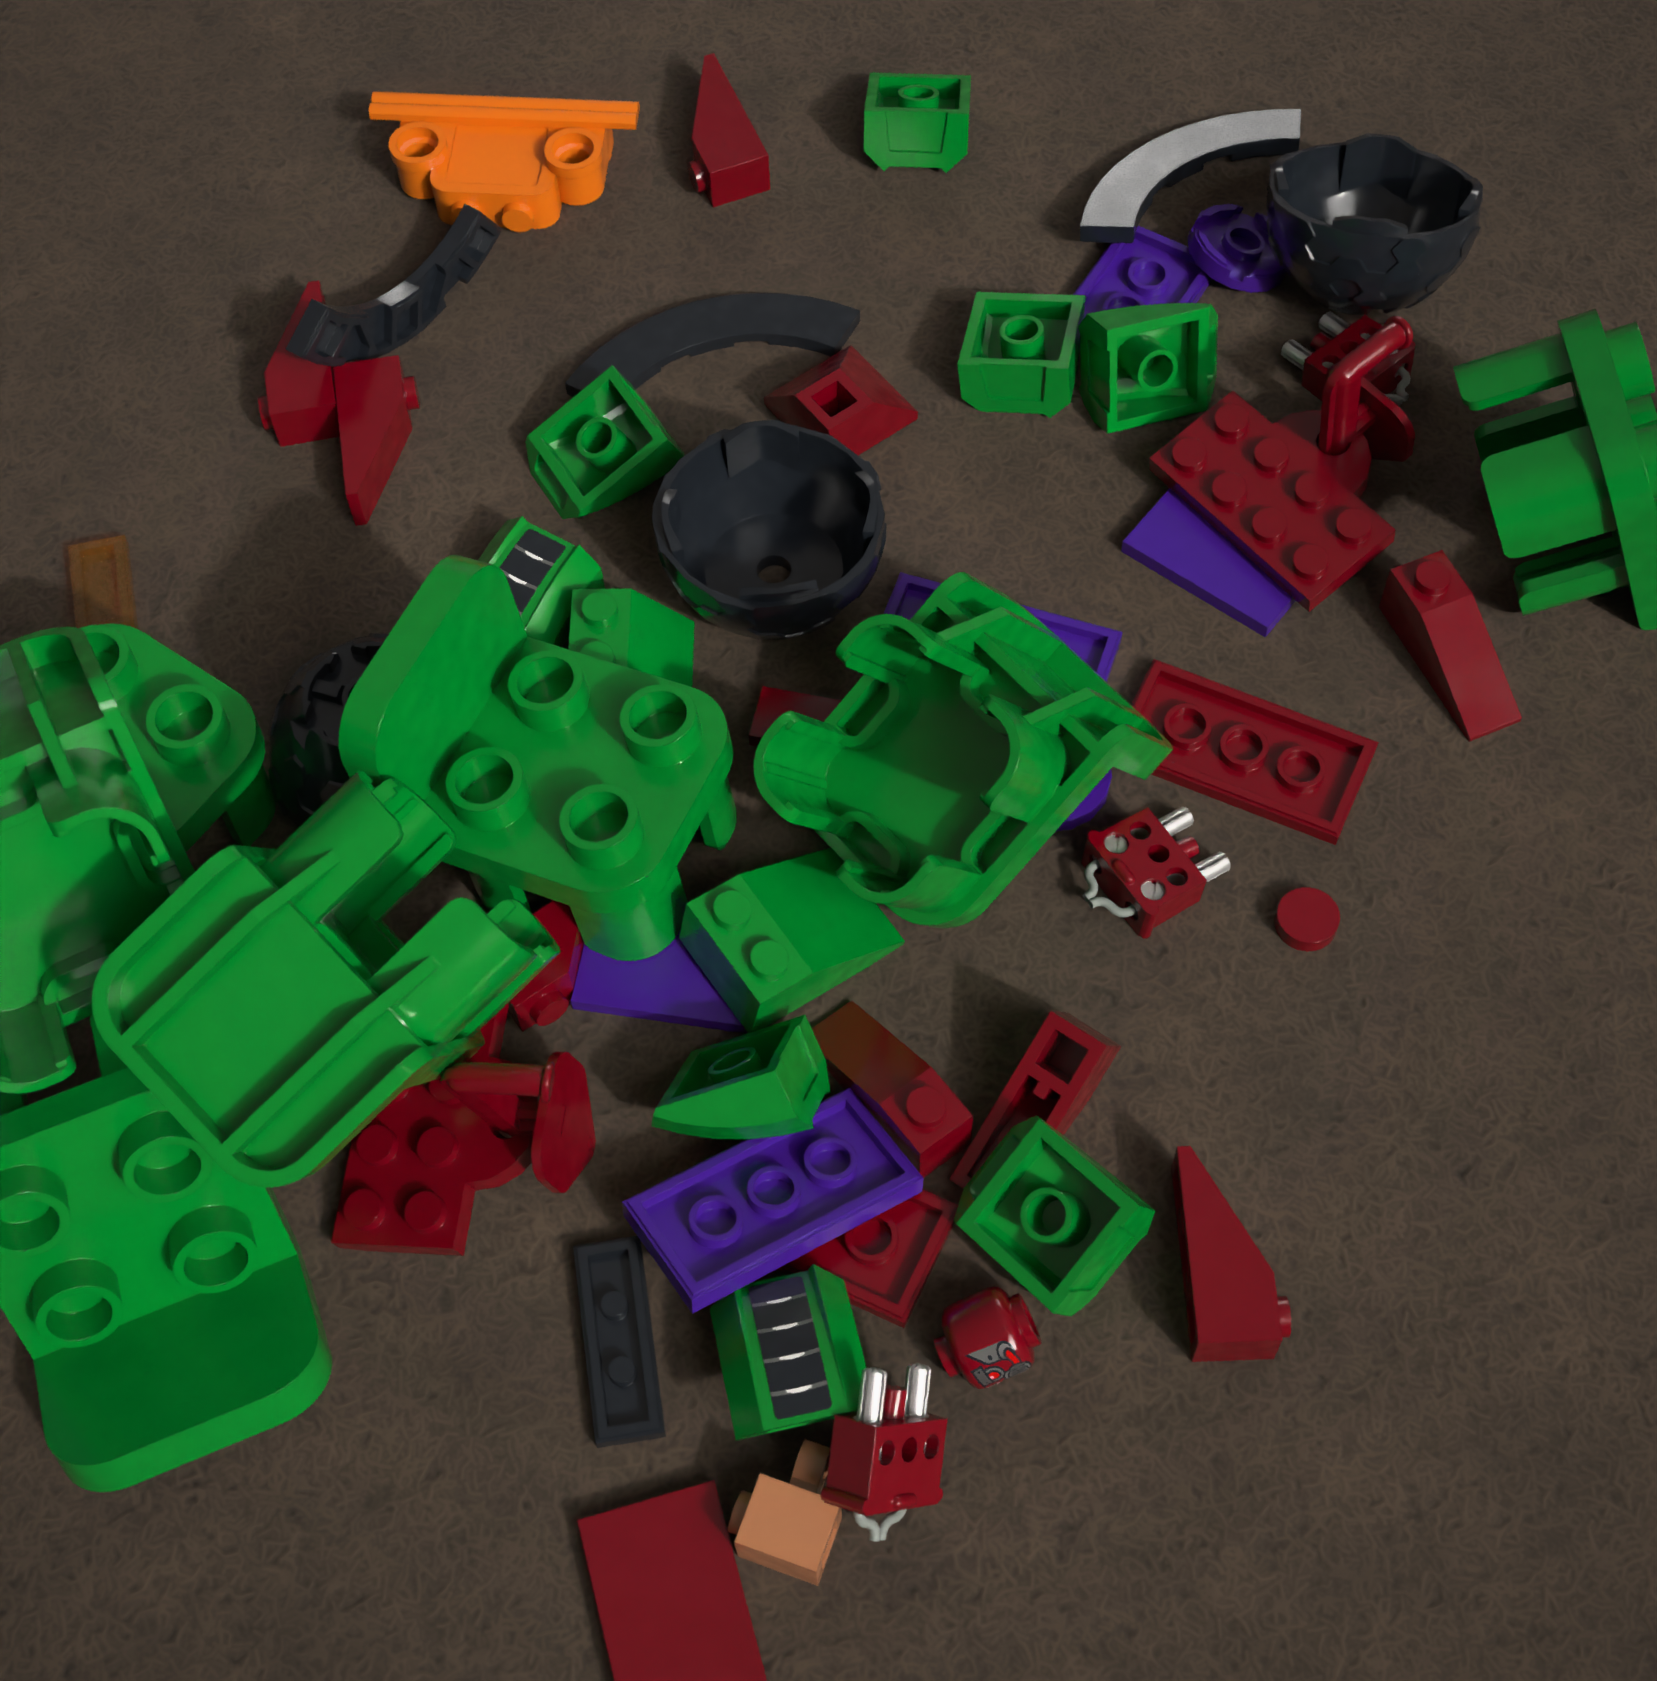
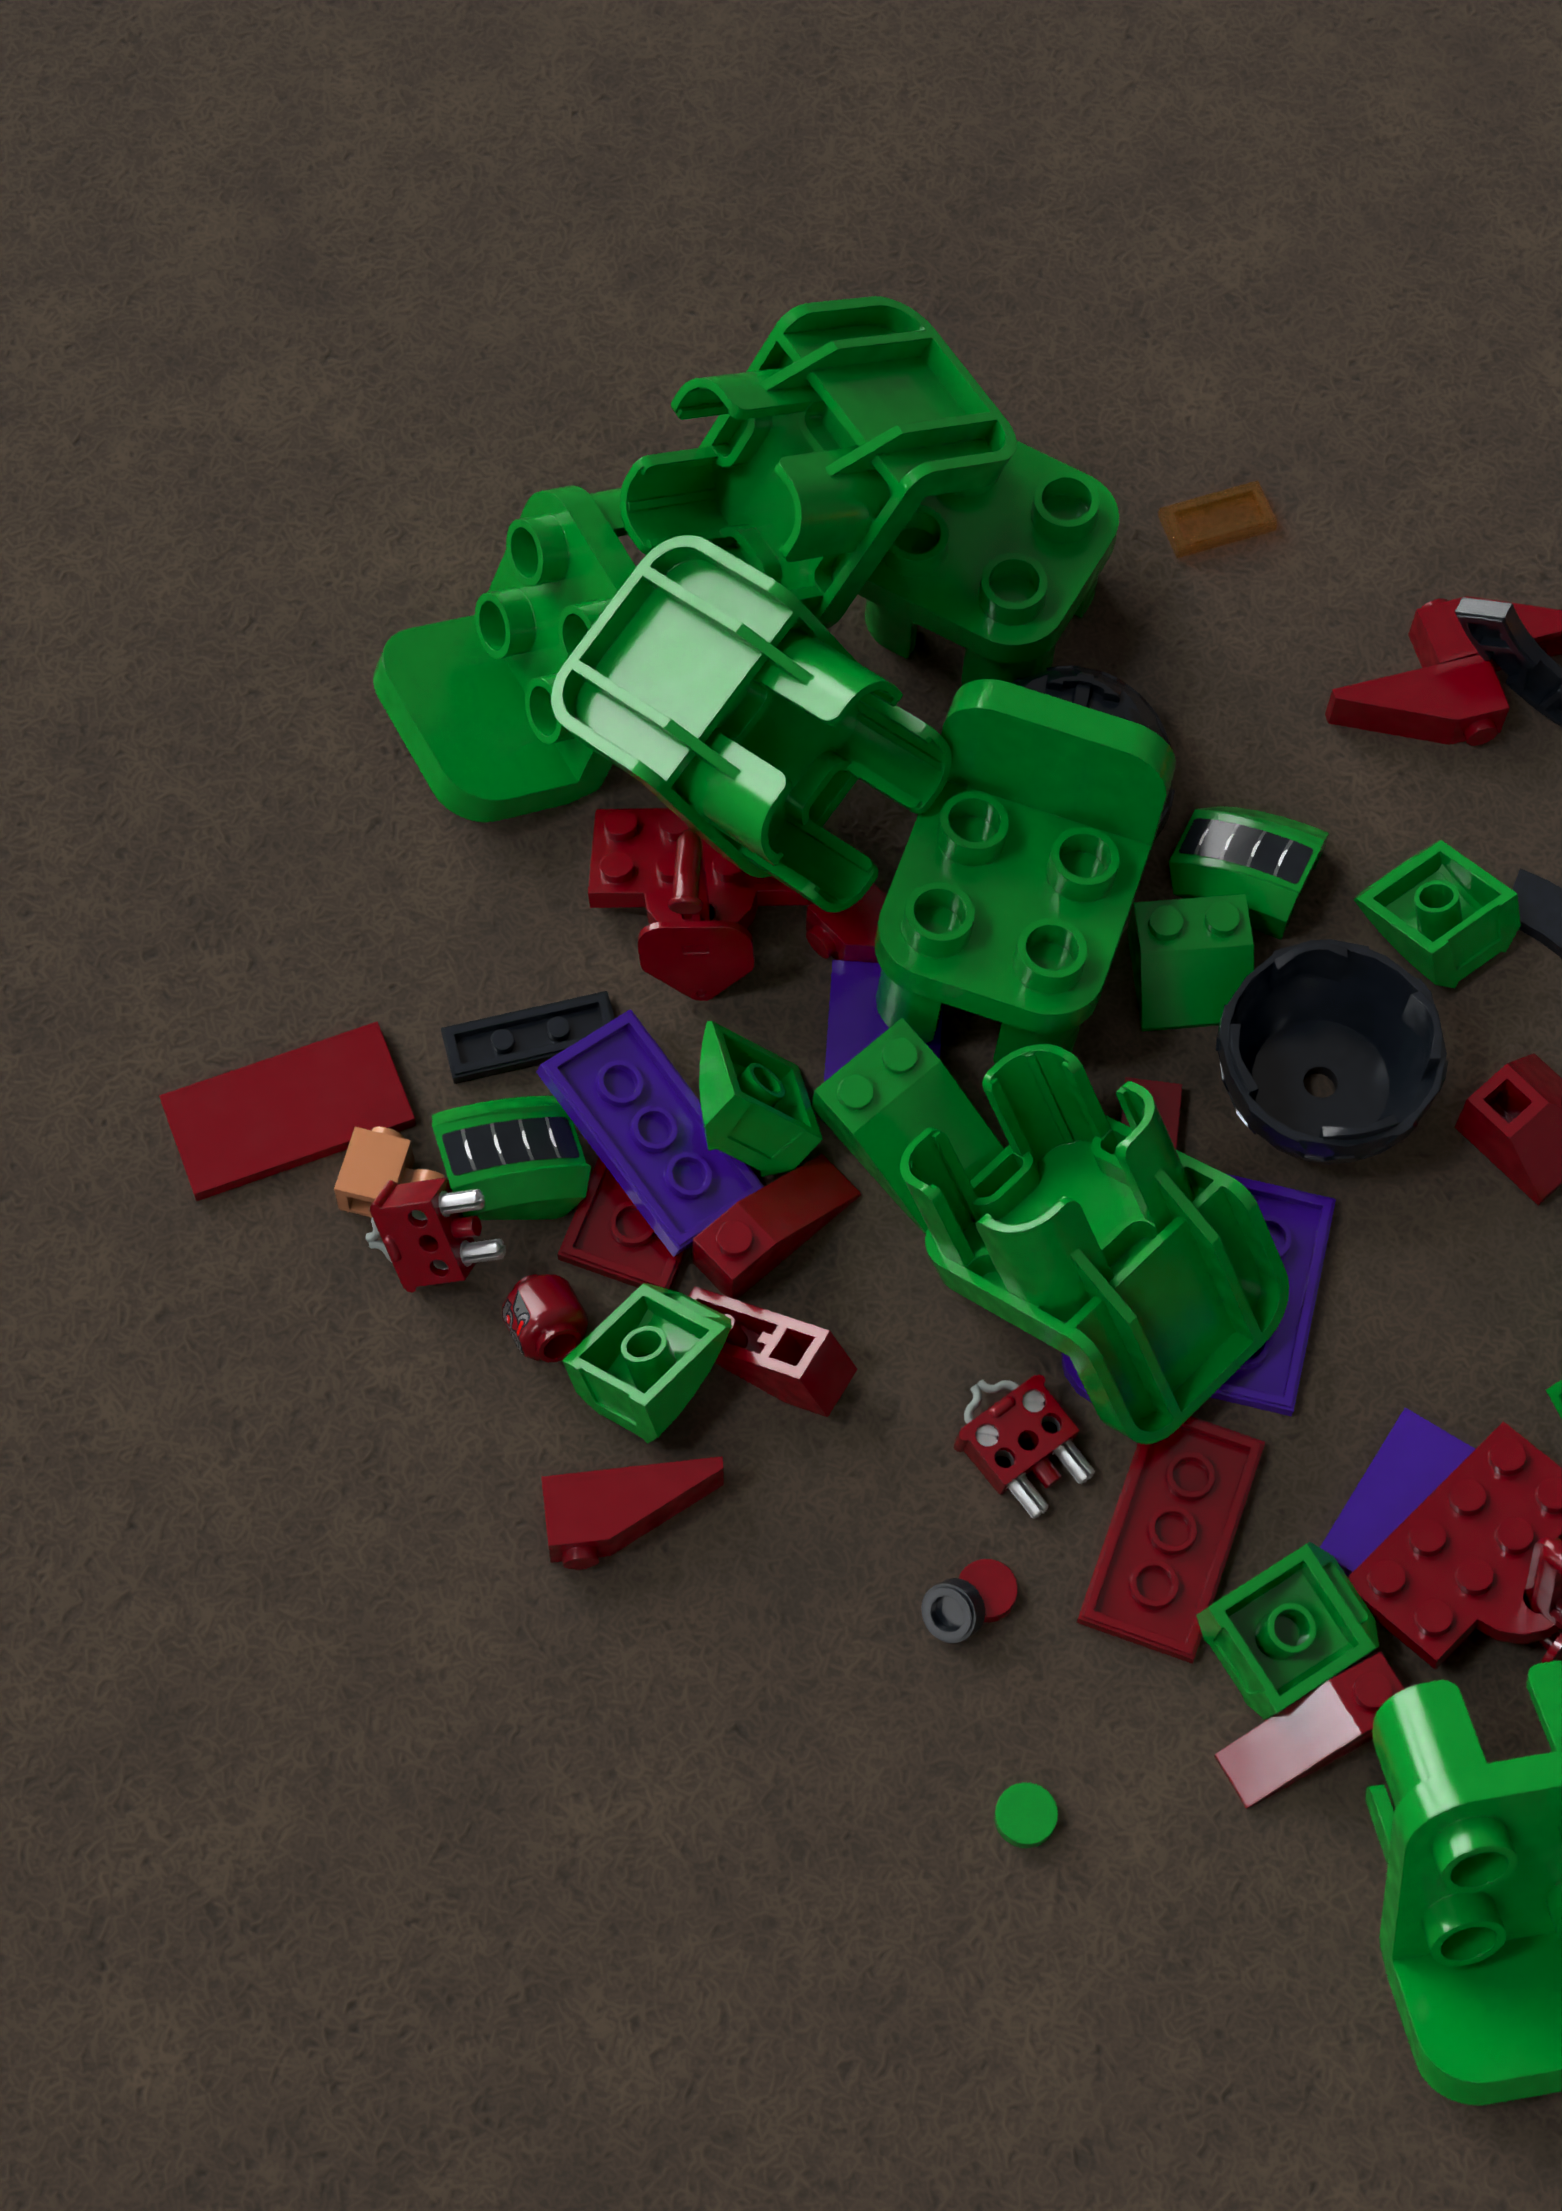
camera: 80 degrees right, 5 degrees up
(1335, 946) = (953, 1610): none -> black tile
(1367, 650) = (1289, 1629): none -> green slope
(1542, 905) = (1026, 1815): none -> green tile

